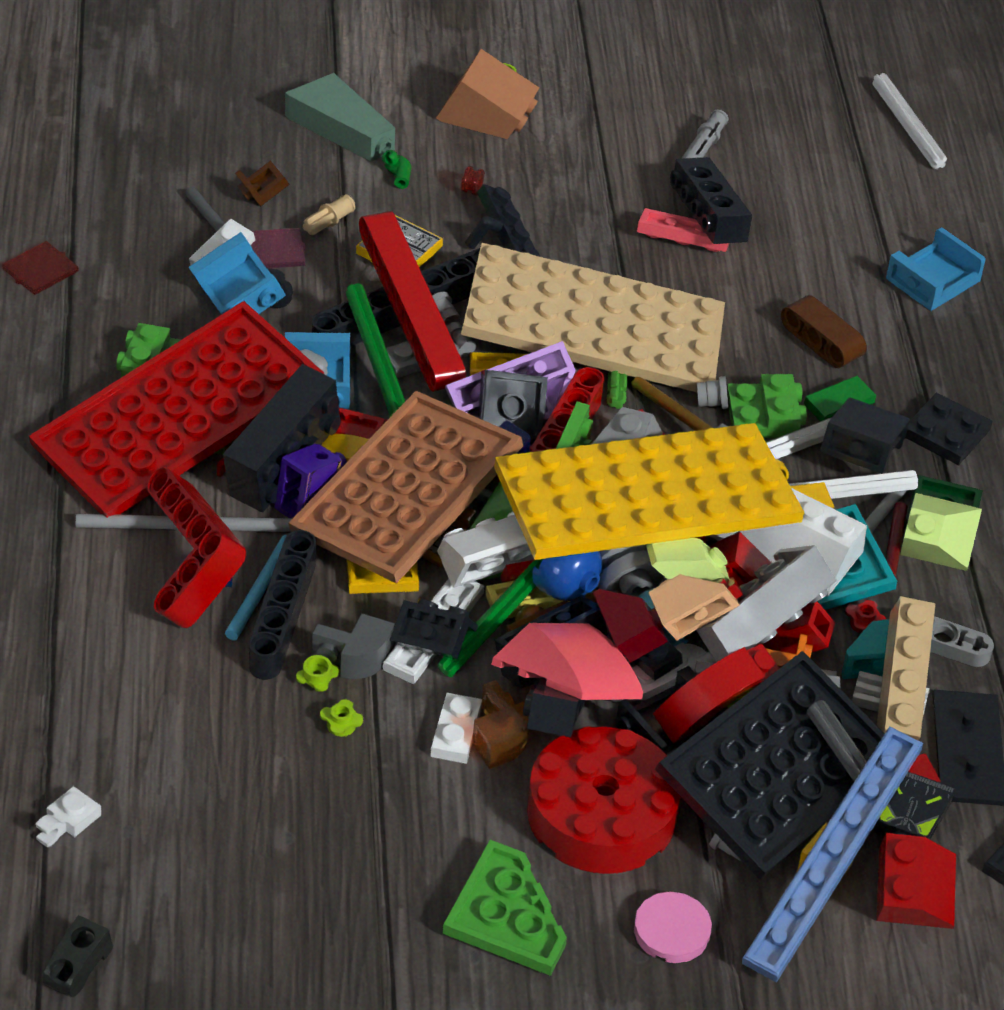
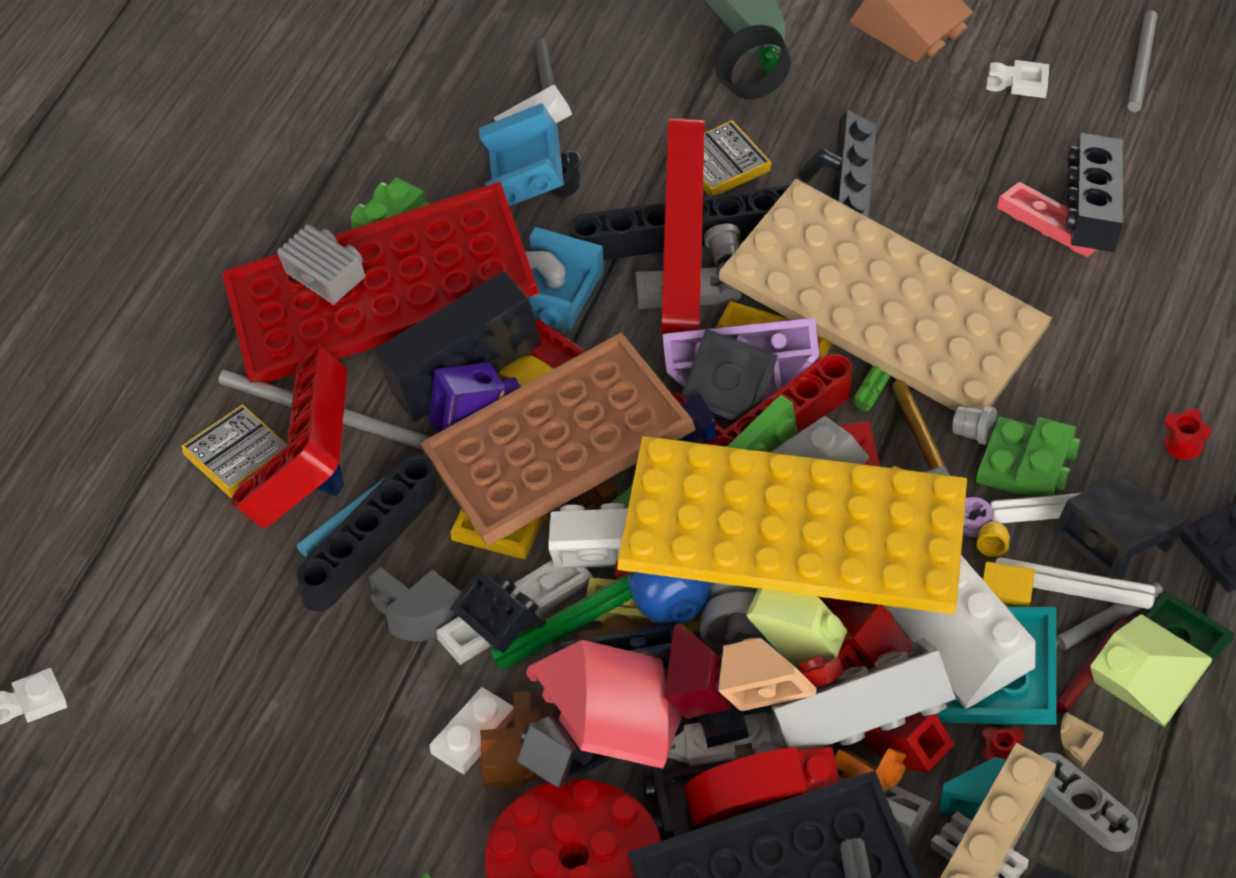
camera: 30 degrees right, 5 degrees up
(40, 267) = (344, 90): clear red piece -> none
(126, 403) = (322, 263): none -> light grey brick
(129, 573) = (233, 449): none -> light grey tile
(262, 184) = (615, 53): reddish brown bracket -> none
(279, 247) = (594, 128): clear pink piece -> none
(317, 672) = (359, 612): lime plate -> none
(329, 214) = (666, 104): tan axle -> none
(341, 718) = (358, 689): lime plate -> none
(374, 145) = (741, 43): none -> black tyre
(375, 347) = (621, 264): green axle -> none
(472, 180) = (843, 100): clear red bush -> none
(603, 130) = (1024, 78): none -> white plate
(682, 98) = (1142, 61): none -> light grey bar
(707, 135) = (1160, 100): light grey pin -> none
(823, 331) = (1146, 381): reddish brown beam -> none
(829, 400) = (1142, 466): green tile -> none
(872, 359) = (1186, 434): none -> red brick
(912, 590) = (1078, 740): none -> tan tile

